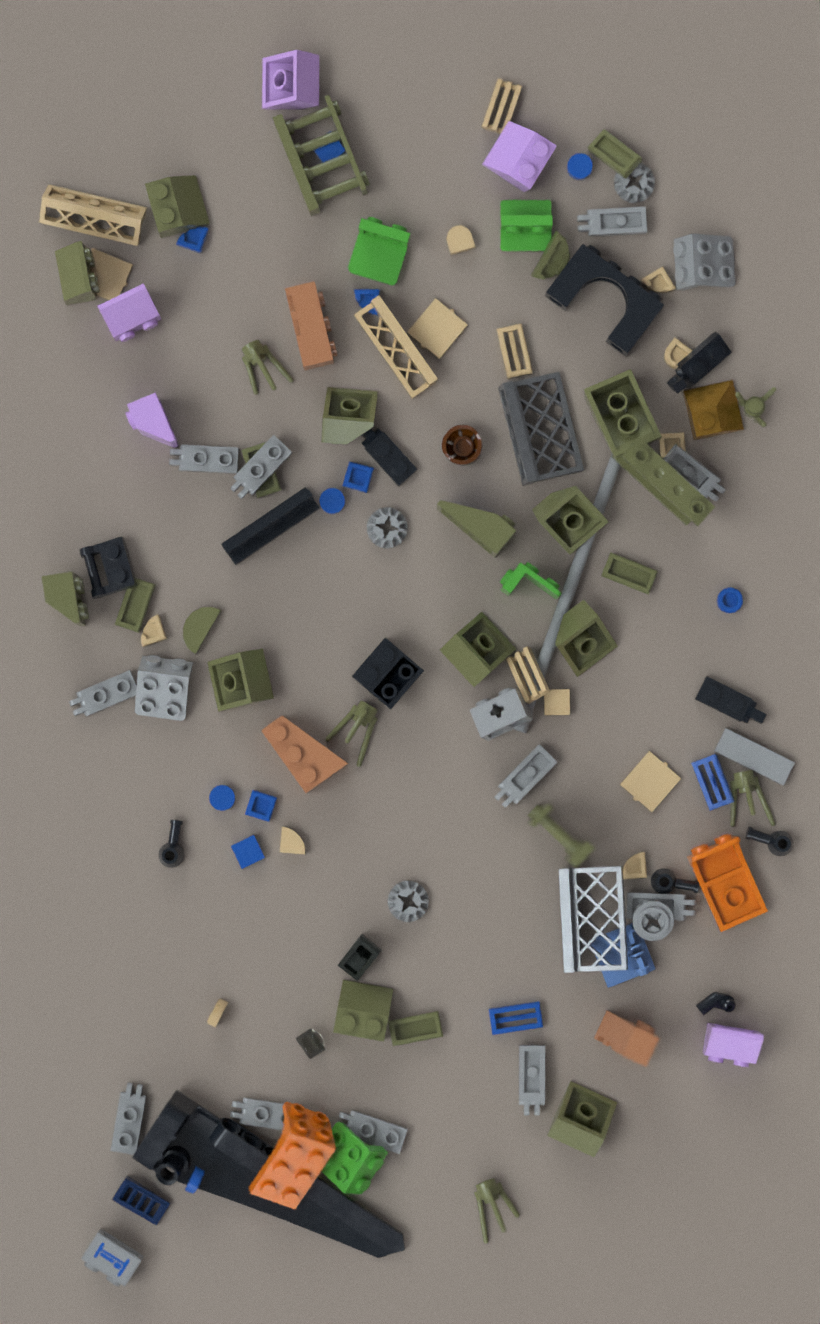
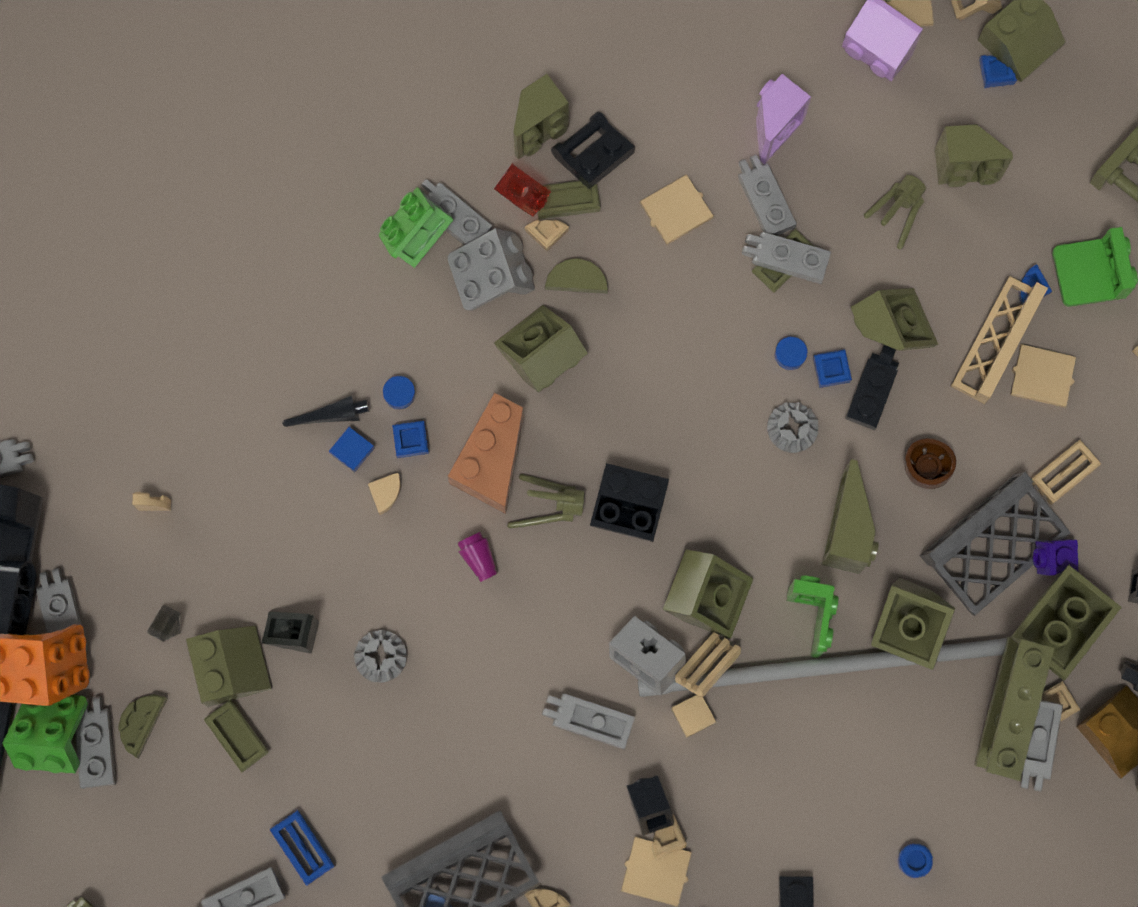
camera: 60 degrees right, 10 degrees down
(104, 729) = (414, 227): none -> bright green bracket
(109, 642) = (514, 183): none -> clear red brick
(172, 845) = (316, 371): black bar -> none
(182, 528) = (676, 209): none -> tan piece
(216, 844) = (340, 411): none -> black piece
(251, 297) = (970, 155): none -> olive slope
(270, 526) = (728, 295): black fence -> none
(310, 325) = (973, 233): nougat wedge -> none
(370, 798) = (478, 556): none -> magenta cone
(371, 1092) = (138, 722): none -> olive tile
(571, 392) = (1055, 555): none -> dark purple bracket
(575, 850) = (531, 814): olive fence -> none
(583, 638) = (782, 708): olive slope -> none
(604, 763) = (650, 805): none -> black brick
(629, 573) = (885, 726): olive tile -> none
(632, 762) = (668, 840): none -> tan tile

